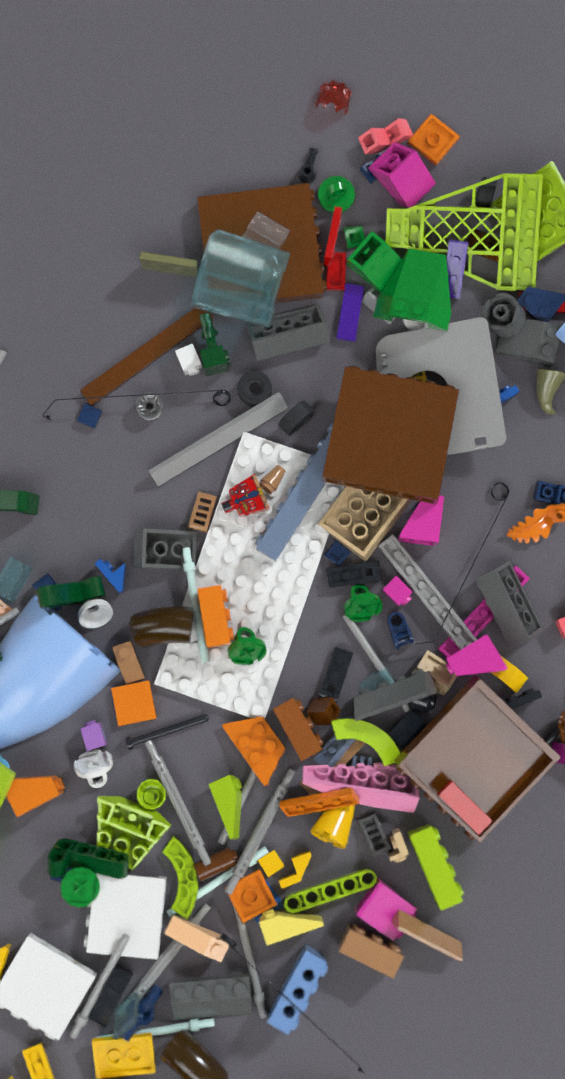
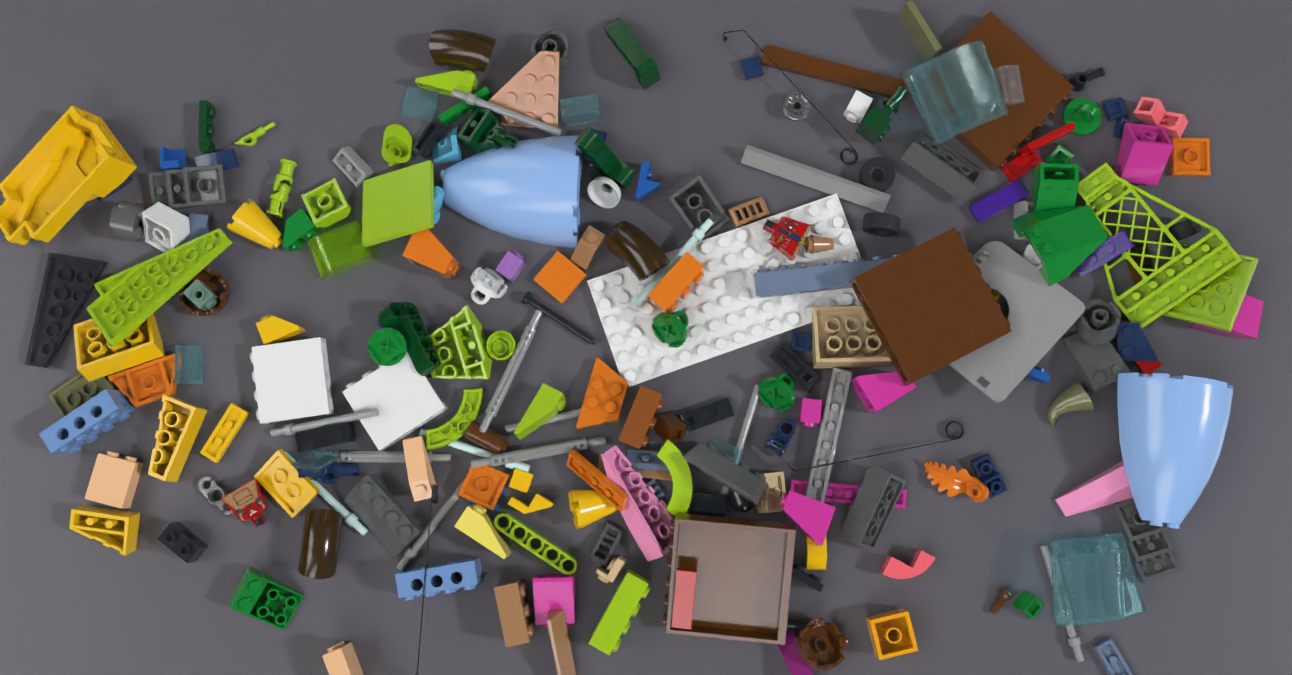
camera: 55 degrees right, 0 degrees up
(331, 94) = (1162, 52): clear red helmet -> none
(351, 165) = (1114, 109): none -> dark blue tile

